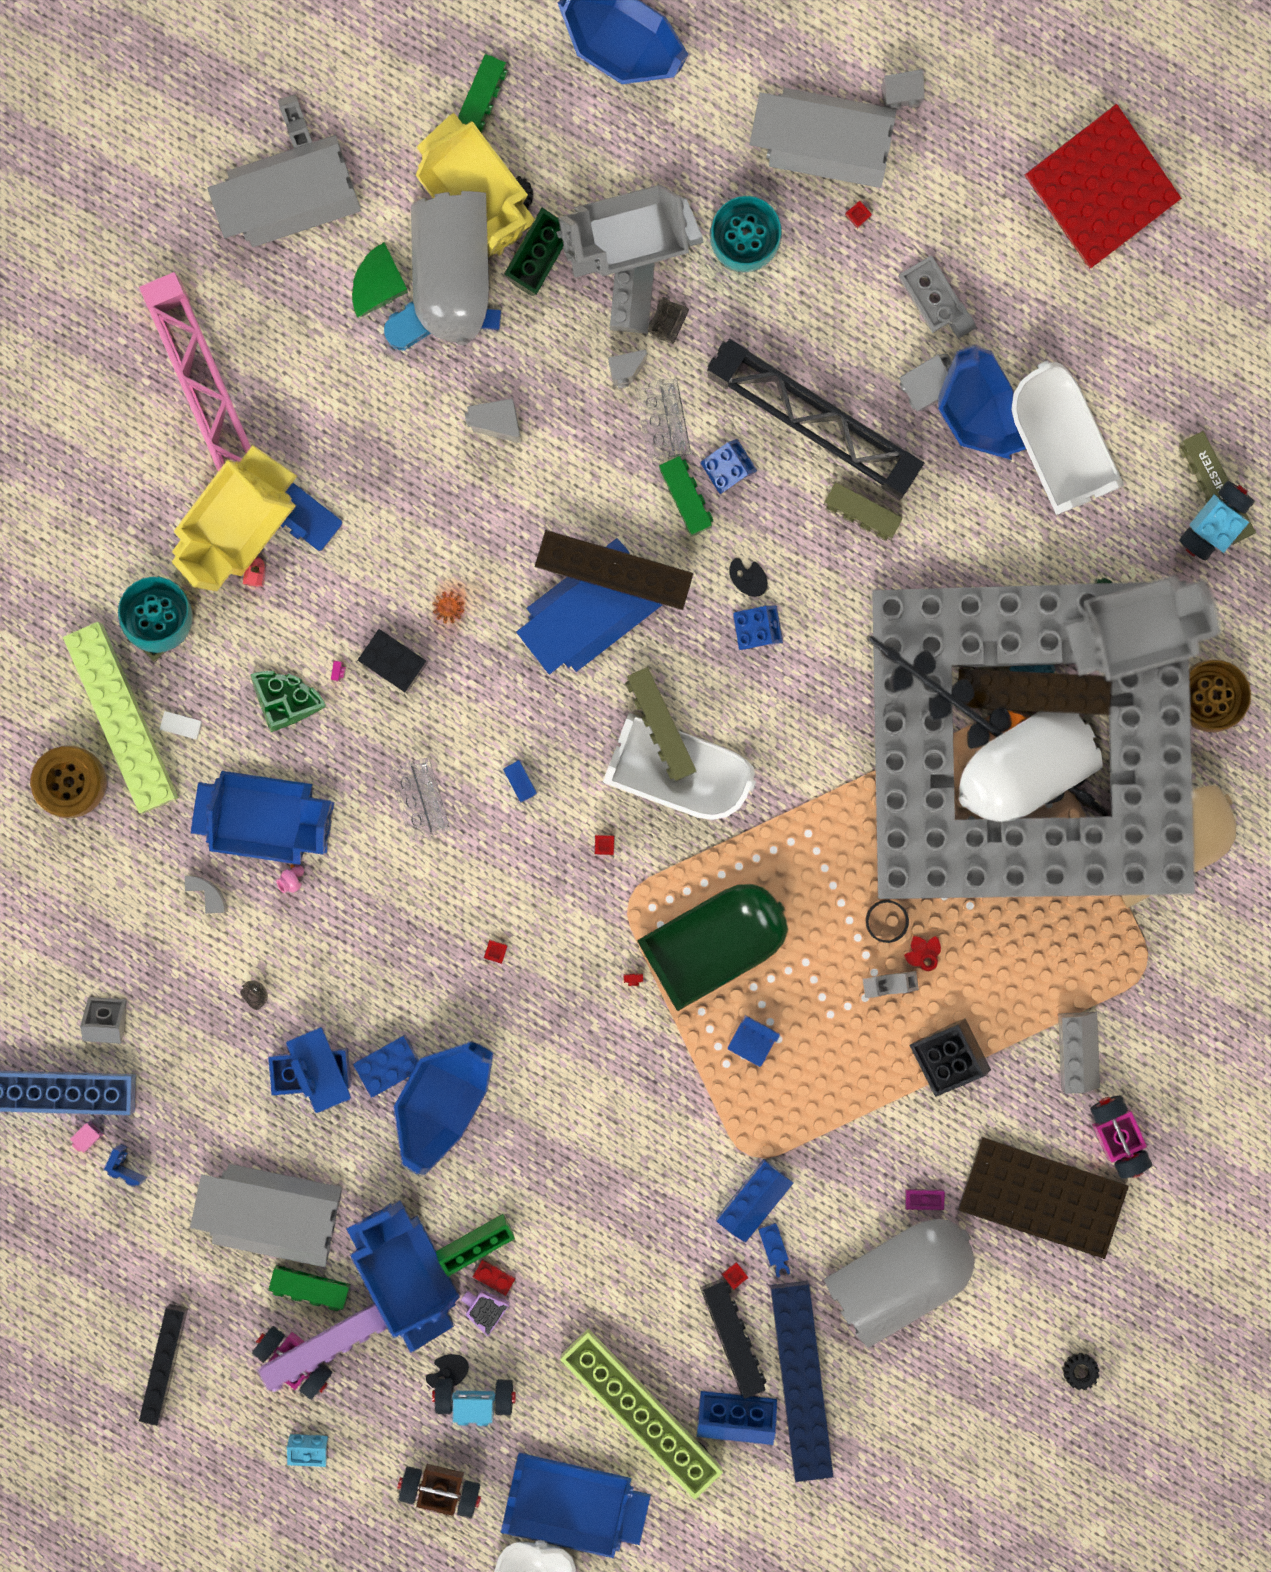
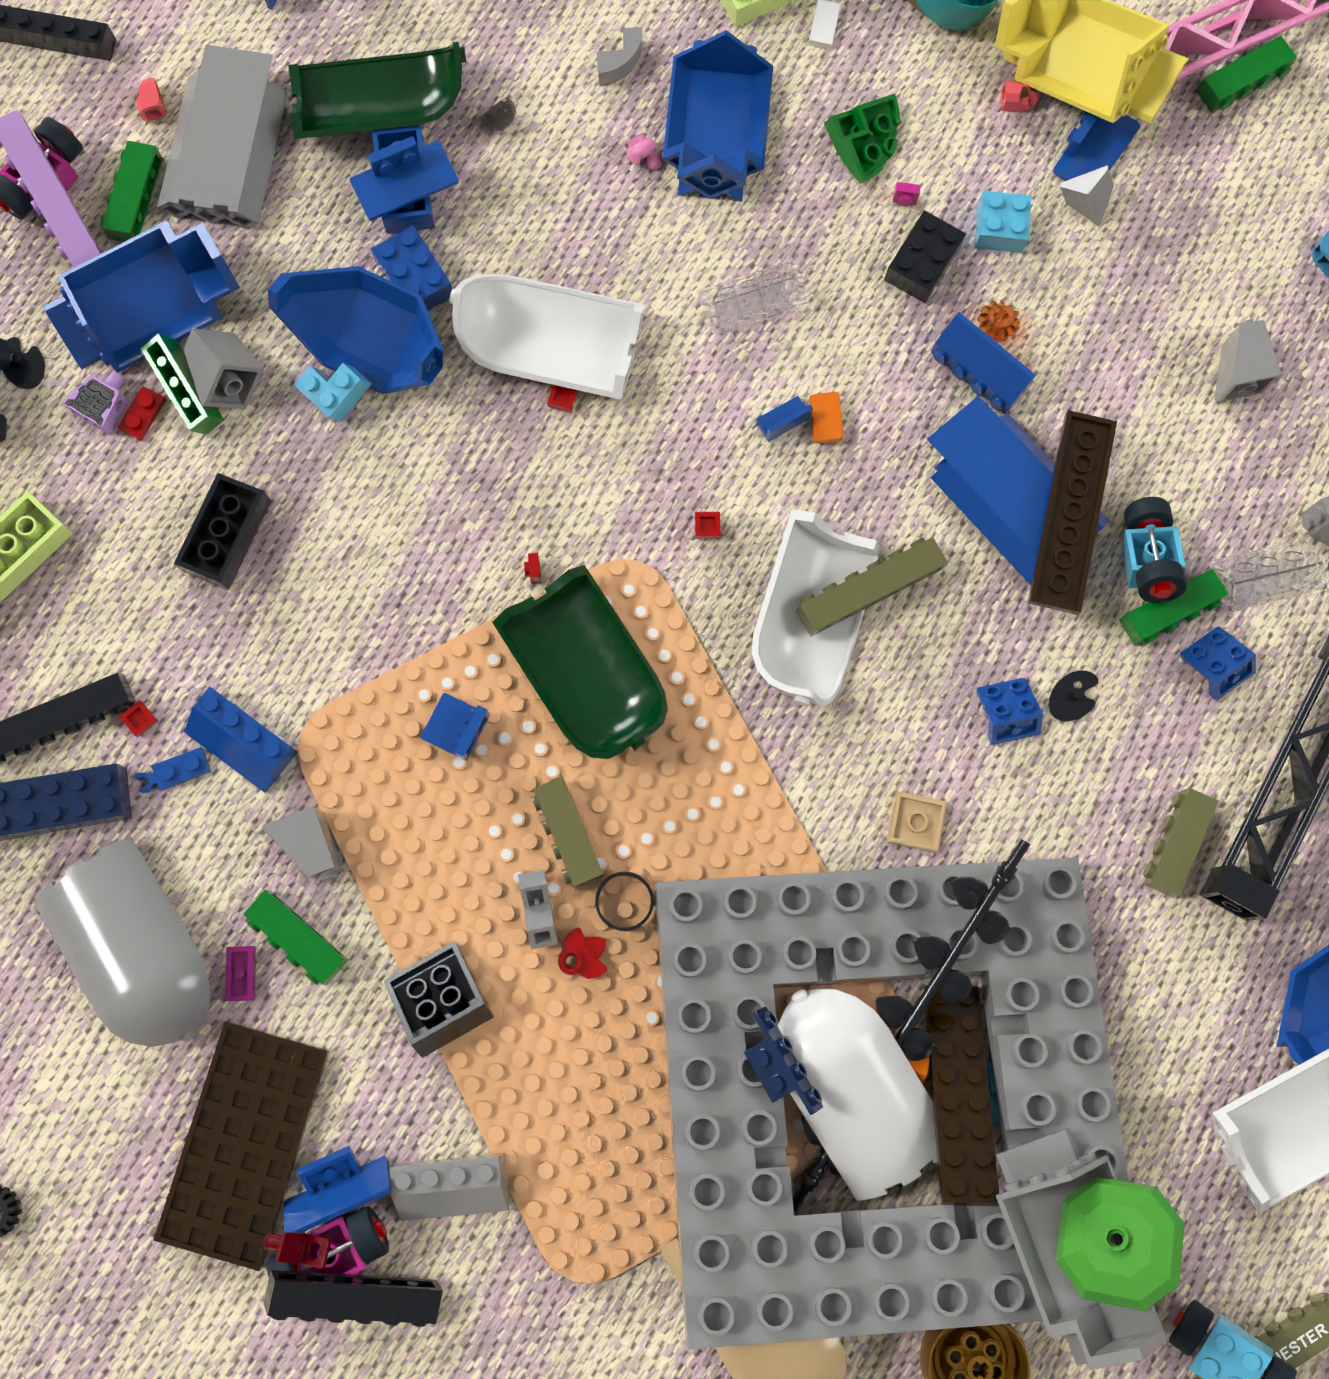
camera: 80 degrees right, 10 degrees down
(228, 1274) = (150, 101): none -> coral rock
(234, 1092) = (375, 92): none -> dark green panel
(243, 385) = (1246, 74): none -> green brick
(345, 524) = (1089, 193): none -> light grey slope
(365, 596) = (1002, 221): none -> medium azure brick
(445, 960) = (547, 332): none -> white panel
(465, 1214) = (221, 368): none -> light grey slope
(487, 625) = (982, 363): none -> blue slope
(488, 1129) = (336, 394): none -> medium azure brick
(522, 748) = (826, 418): none -> orange slope
(595, 1213) = (222, 531): none -> black brick
(645, 510) = (1153, 551): none -> brick
(835, 960) = (568, 832): none -> olive brick
(836, 1149) = (308, 843): none -> light grey slope
(837, 703) = (916, 822): none -> tan tile
(901, 1159) = (295, 937): none -> green brick
(1013, 821) = (777, 1065): none -> dark blue bracket
(1076, 1132) = (335, 1187): none -> blue bracket
(1116, 1157) = (296, 1248): none -> dark red bracket
(1145, 585) = (1141, 1267): none -> bright green rock
(1150, 1119) = (352, 1298): none -> black brick

